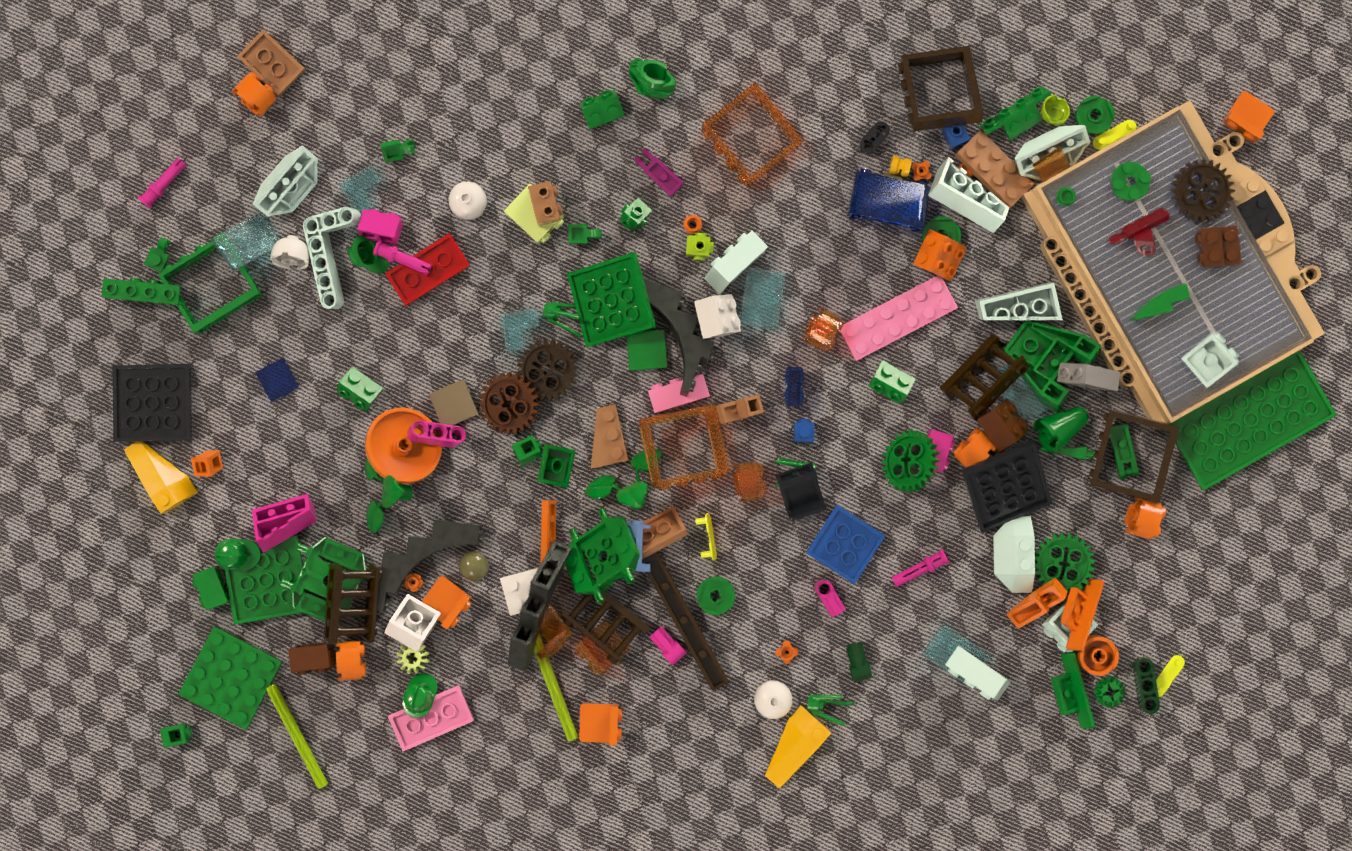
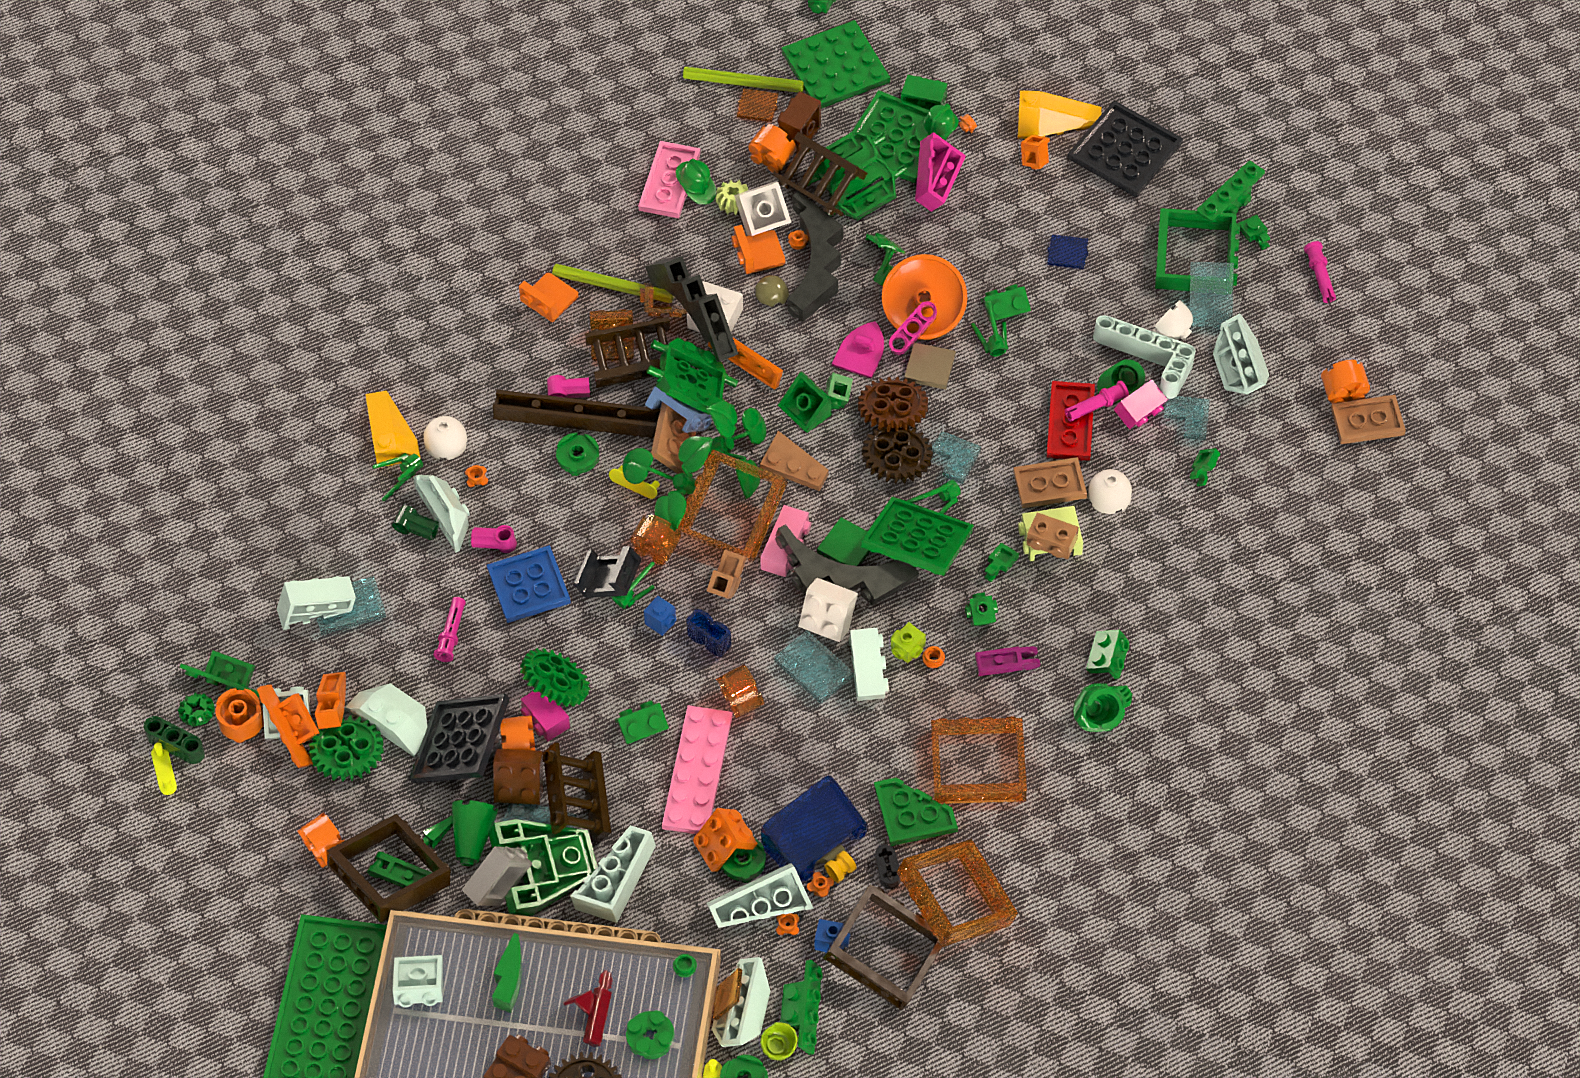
camera: 125 degrees right, 30 degrees down
(215, 536) = (967, 123): none -> orange plate
(311, 707) = (757, 105): none -> clear orange piece
(400, 369) = (996, 344): none -> green plant
(475, 463) = (861, 350): none -> dark pink shield
(491, 246) = (1050, 482): none -> medium nougat plate
(675, 495) = (692, 453): none -> green plant
(824, 150) = (911, 813): none -> green plate
(831, 650) = (444, 507): none -> light aqua wedge
(841, 59) = (981, 875): none -> clear orange window
(994, 169) = (778, 945): medium nougat plate -> none

